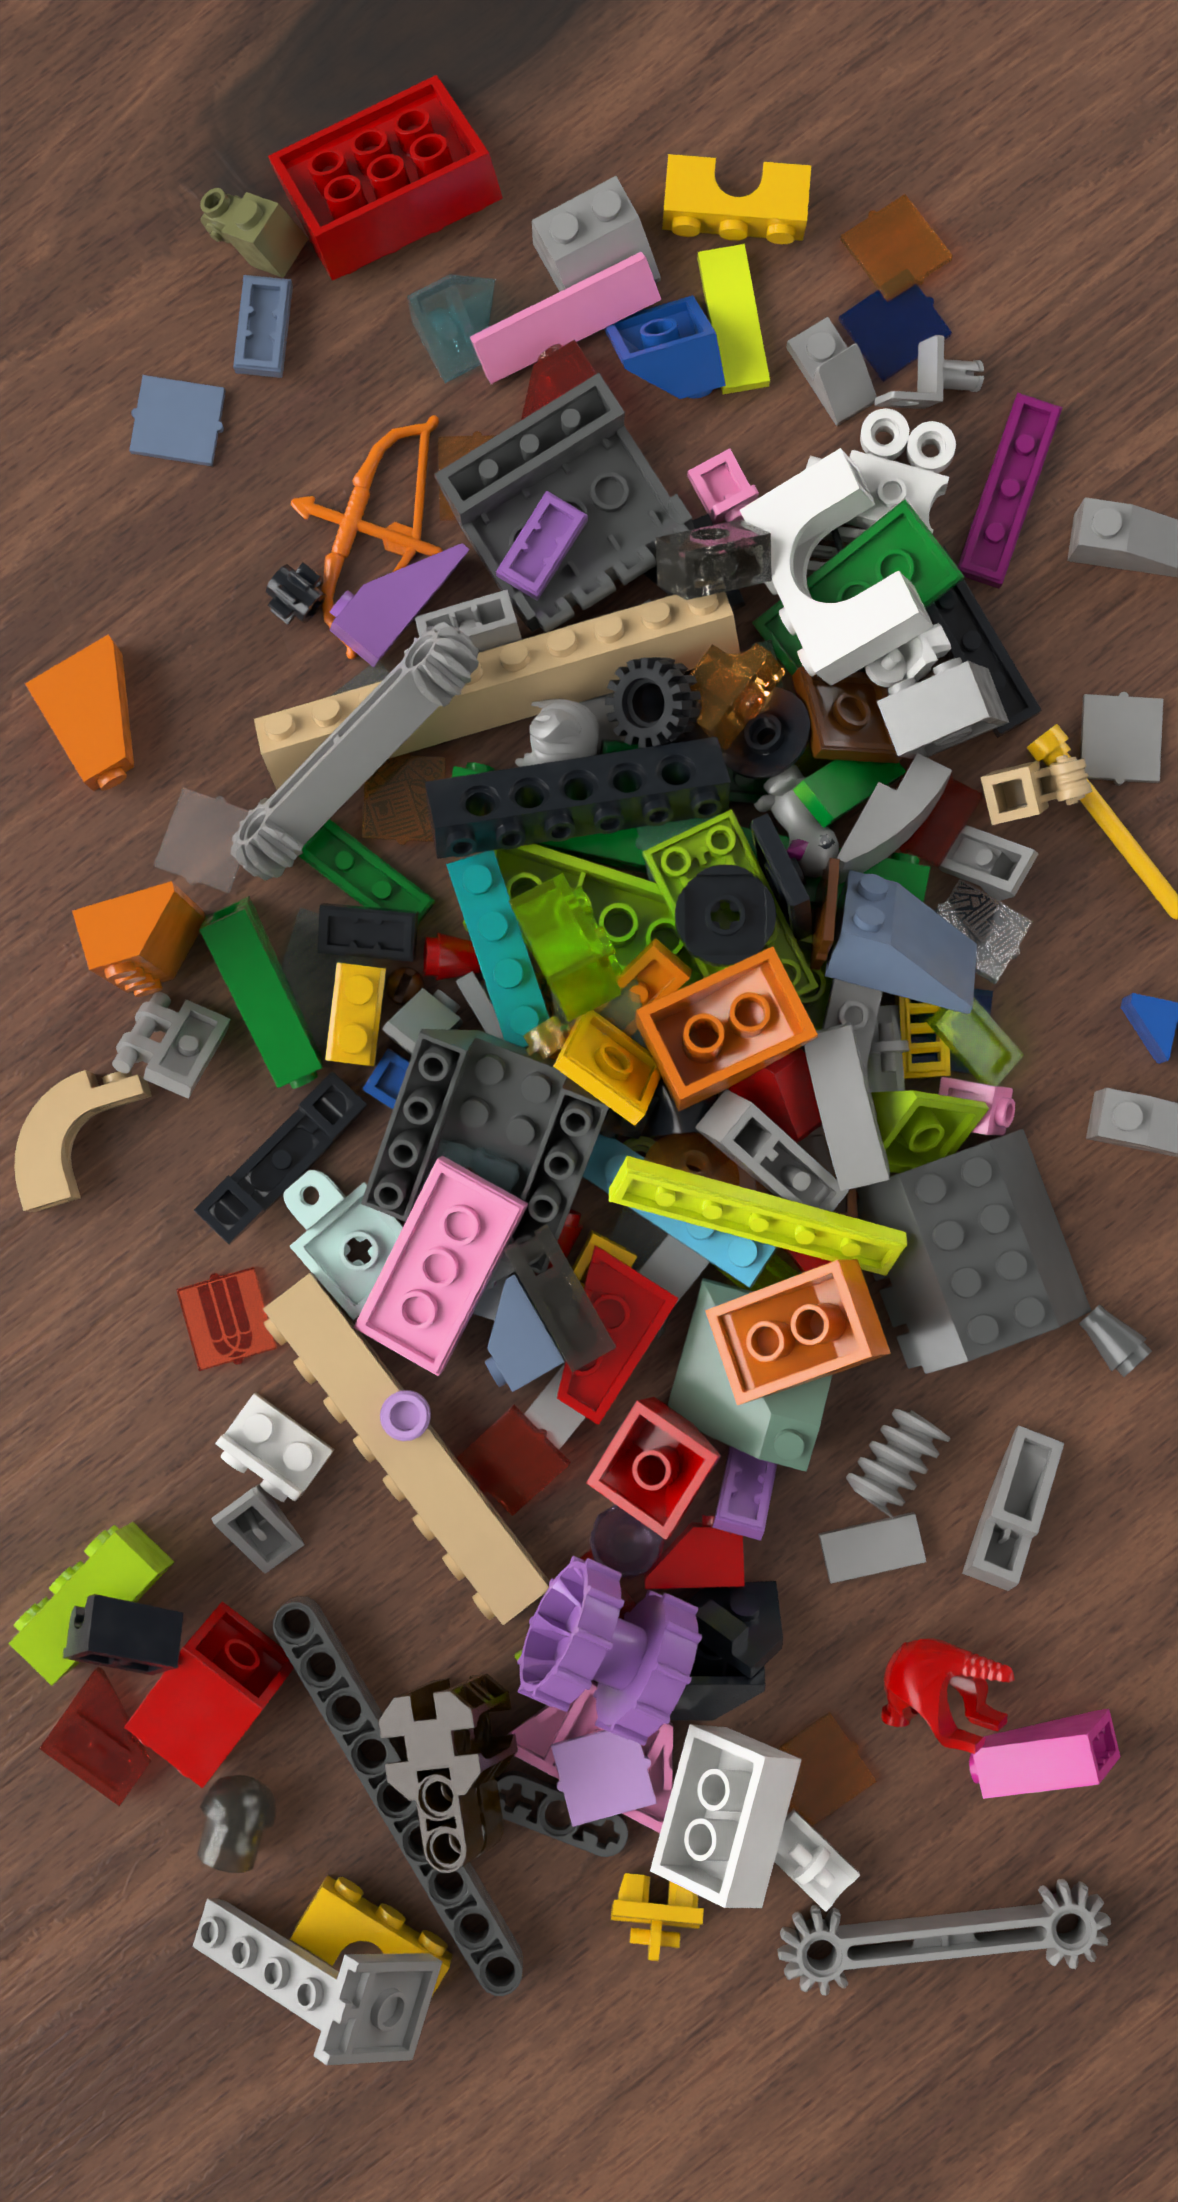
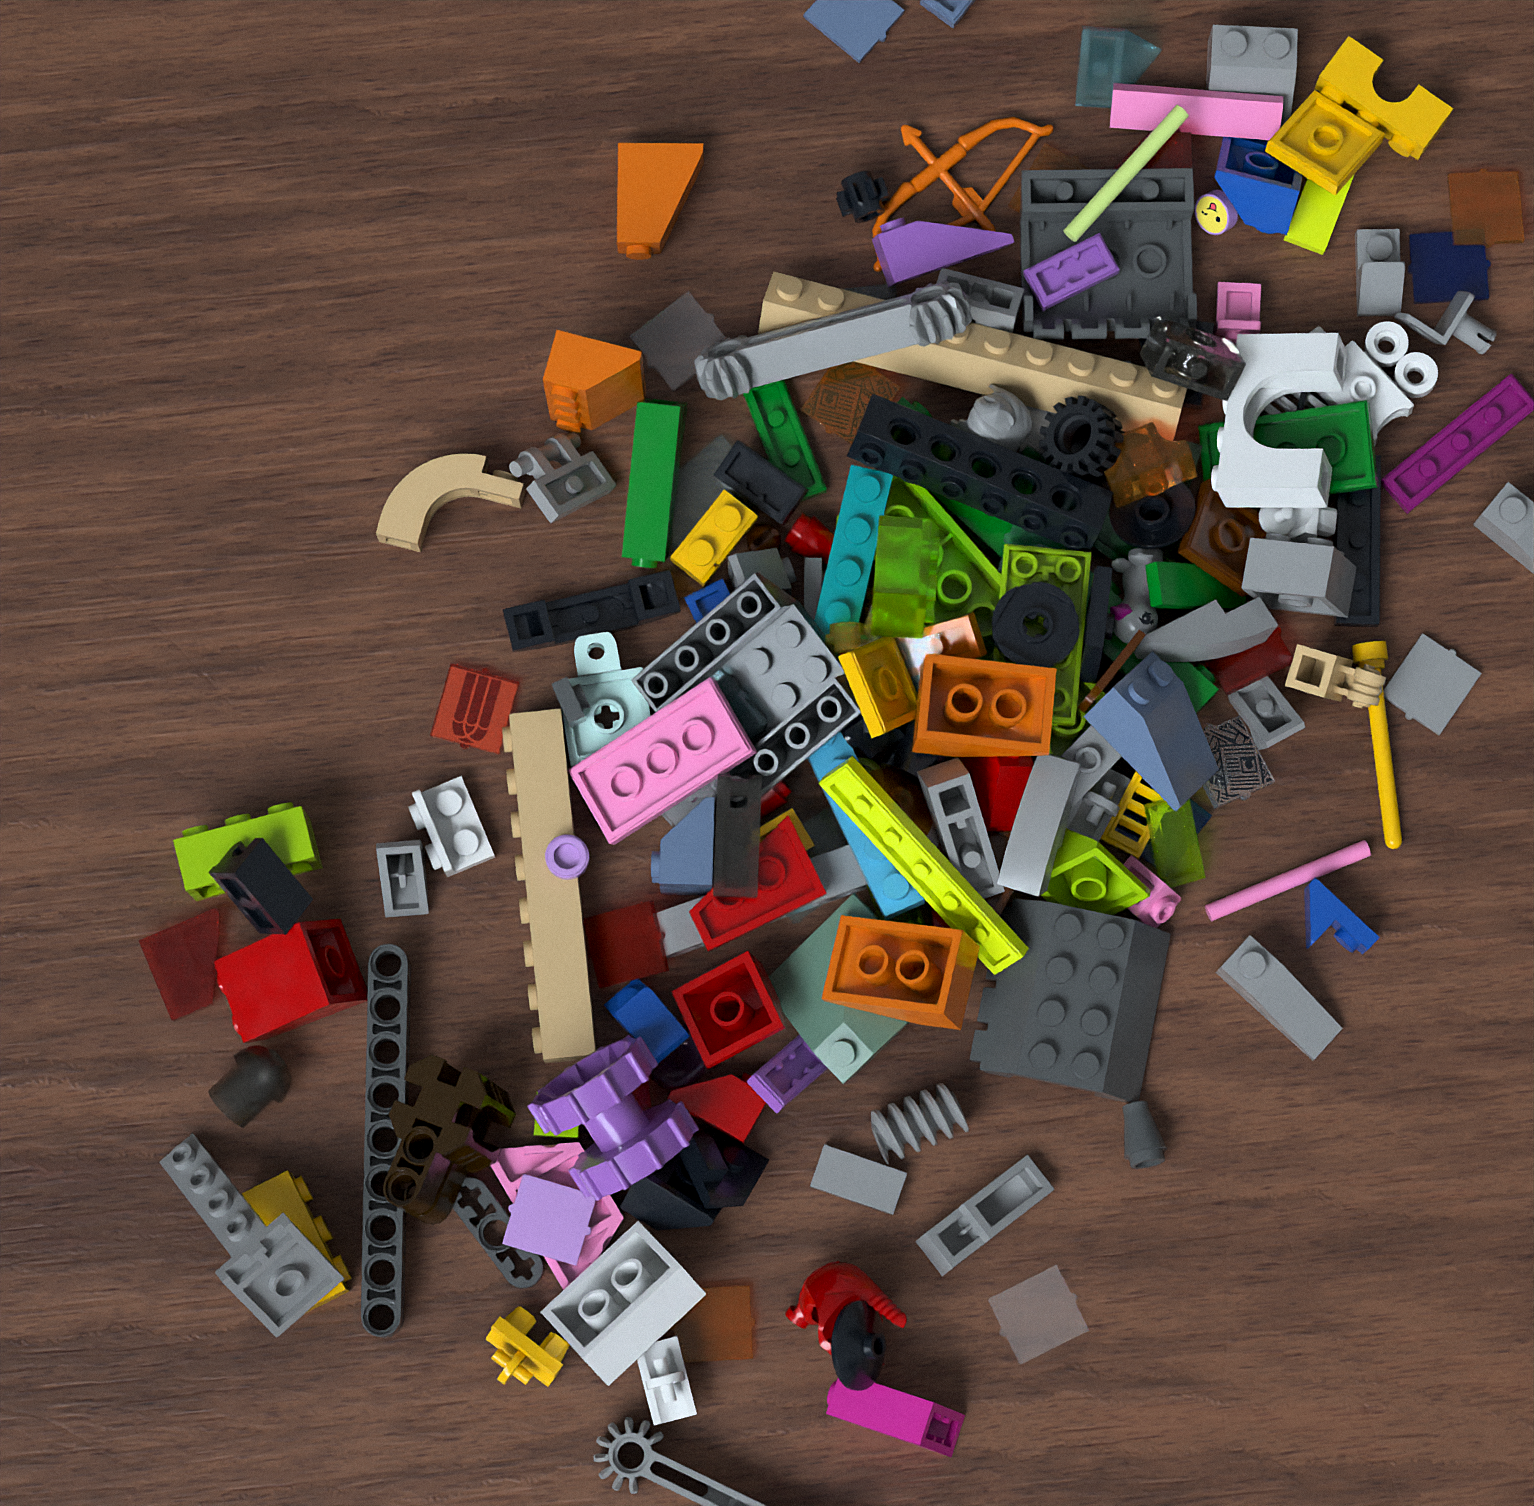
camera: 30 degrees right, 5 degrees down
(315, 1260) = (571, 701): none -> dark grey plate
(537, 415) = (1126, 173): none -> yellowish green bar
(578, 1524) = (646, 1016): none -> blue slope
(644, 405) = (1215, 212): none -> tile
(708, 273) = (1324, 142): none -> yellow tile
(980, 1723) = (858, 1345): none -> black dish
(1102, 1009) = (1287, 880): none -> bright pink bar
(1119, 1570) = (1038, 1314): none -> clear piece

